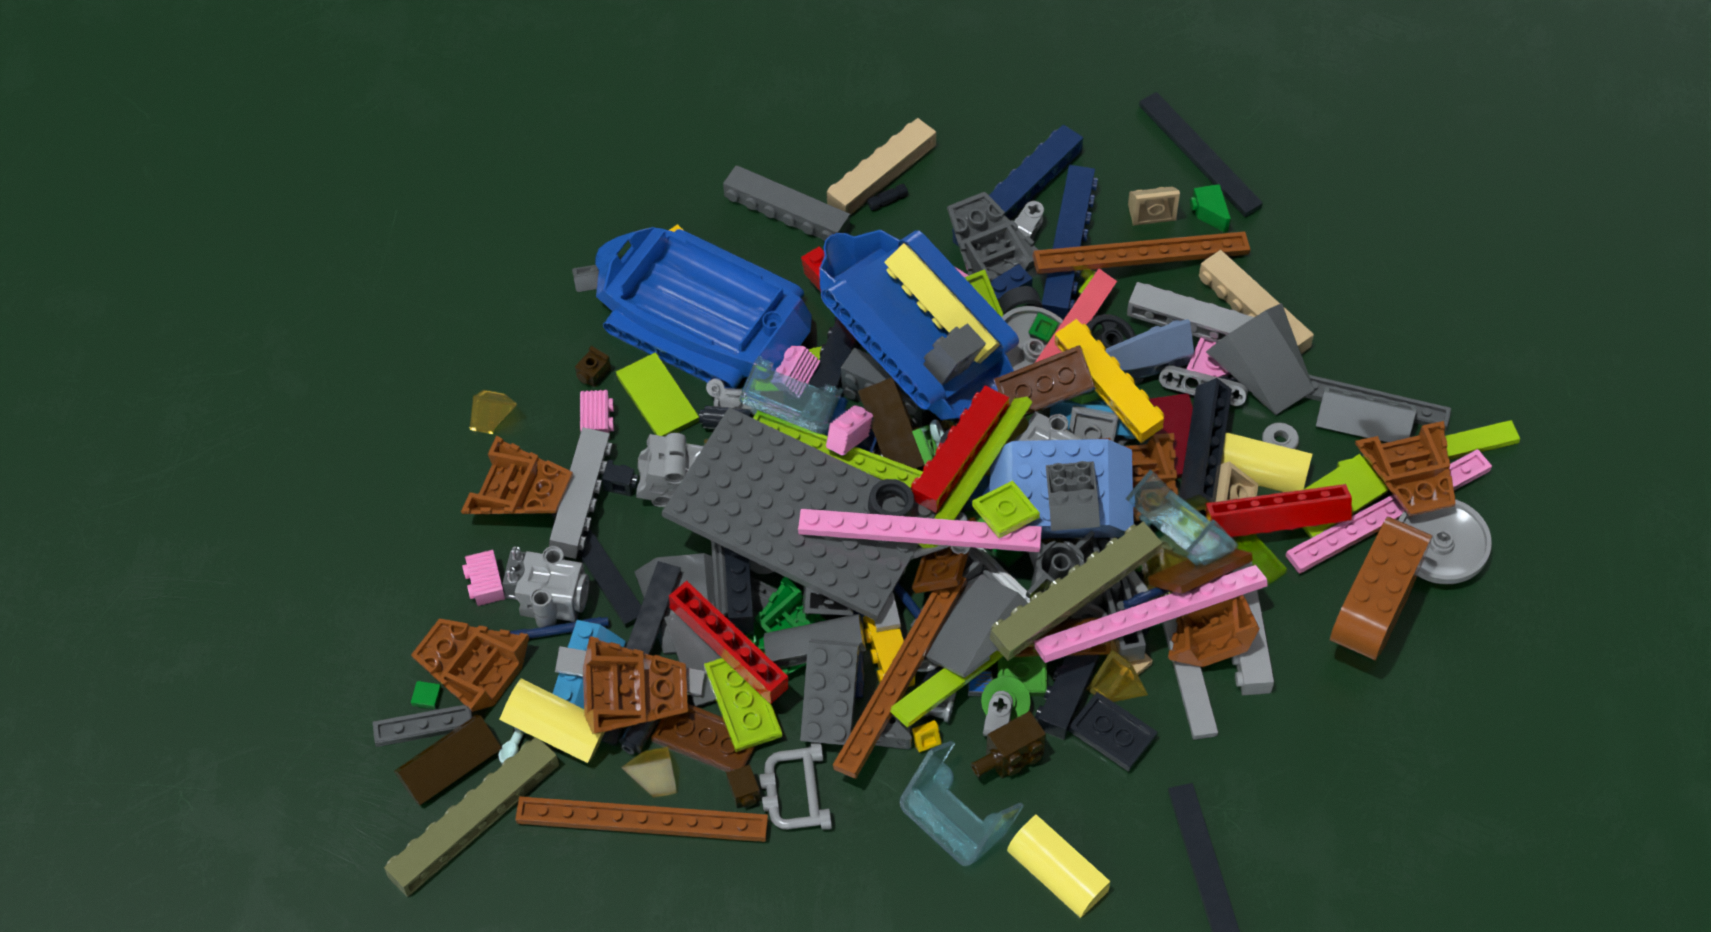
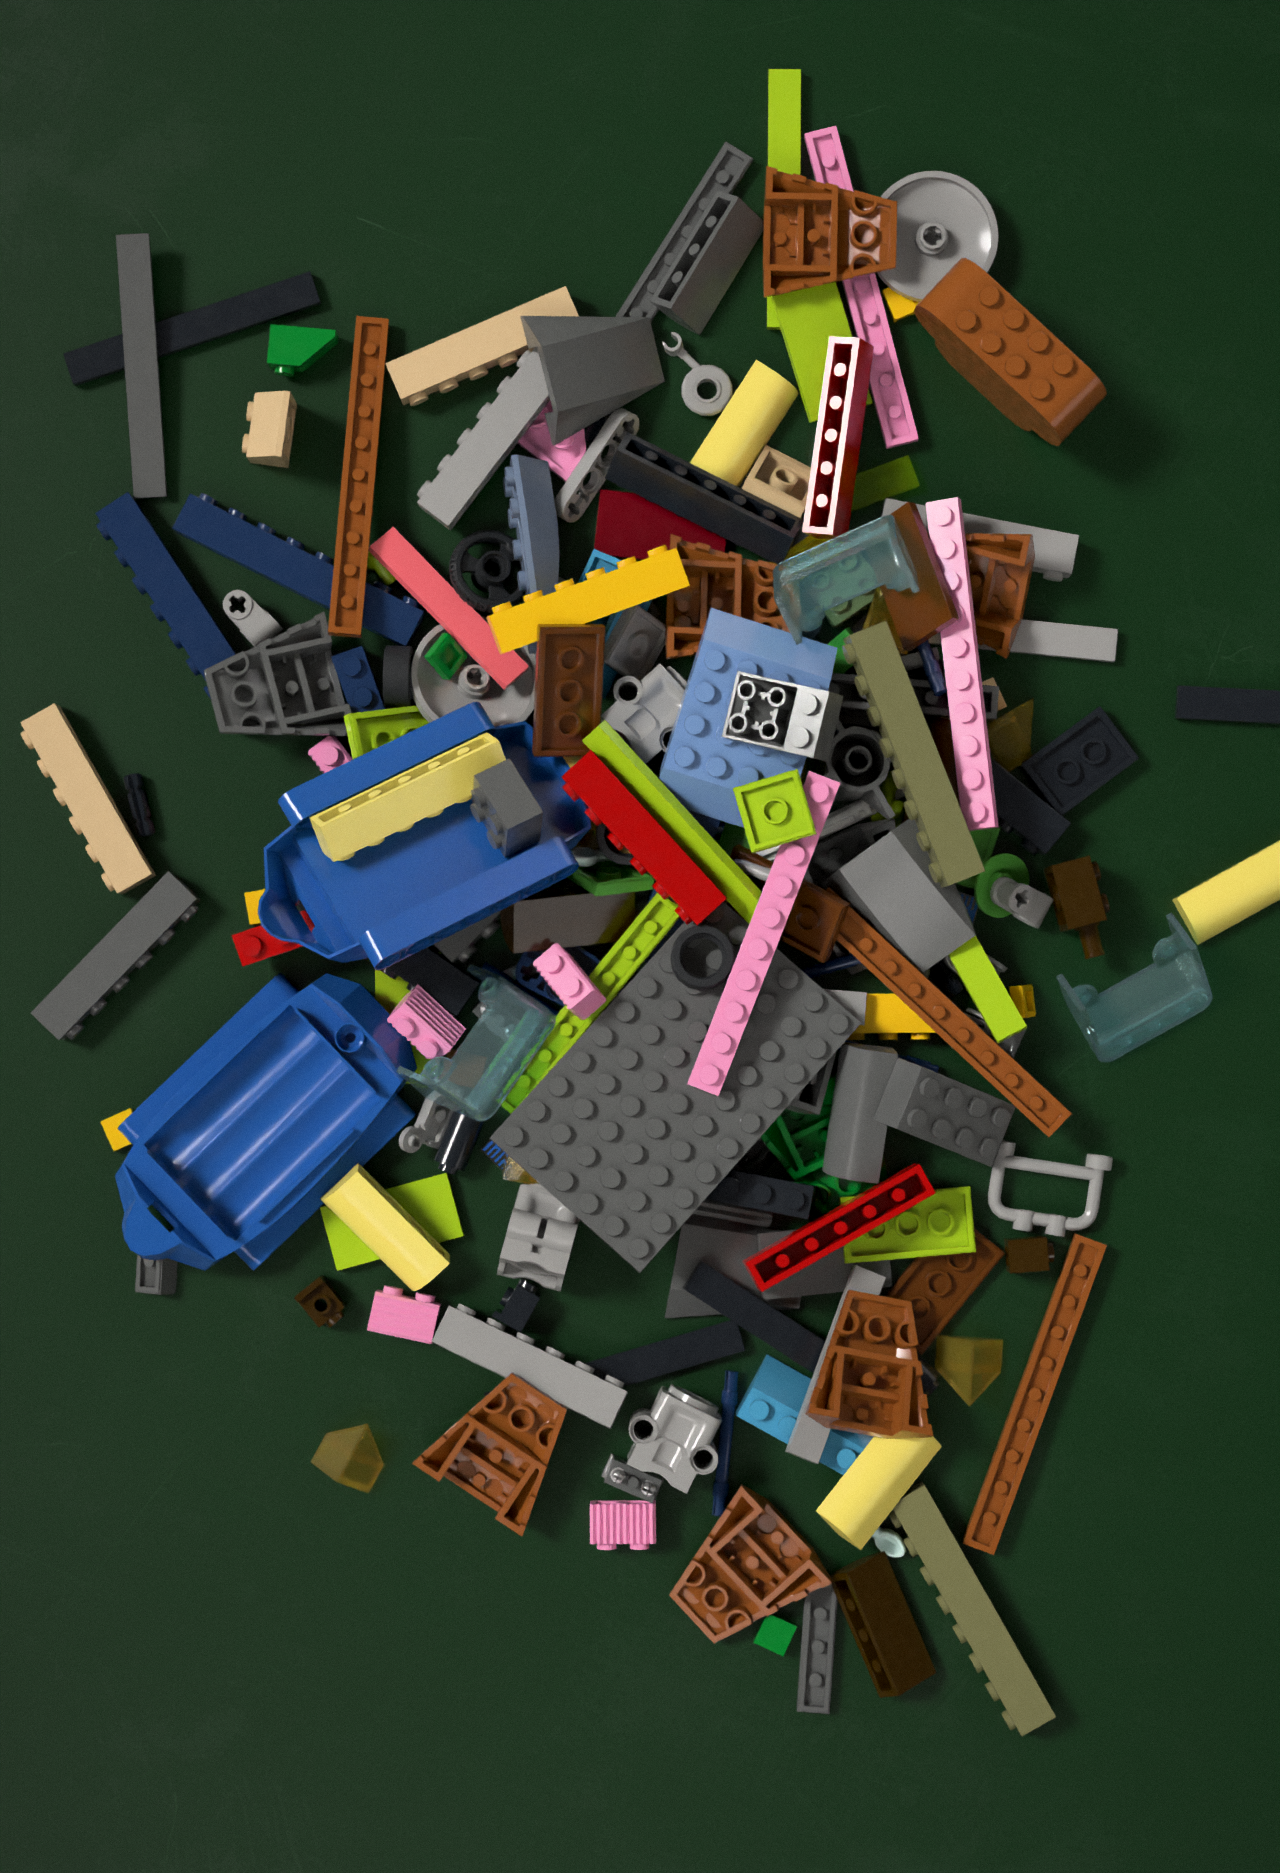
camera: 75 degrees left, 30 degrees up
(653, 386) = (386, 1228): none -> light yellow brick
(1164, 130) = (141, 365): none -> dark grey tile
(1300, 416) = (680, 351): none -> light grey hand

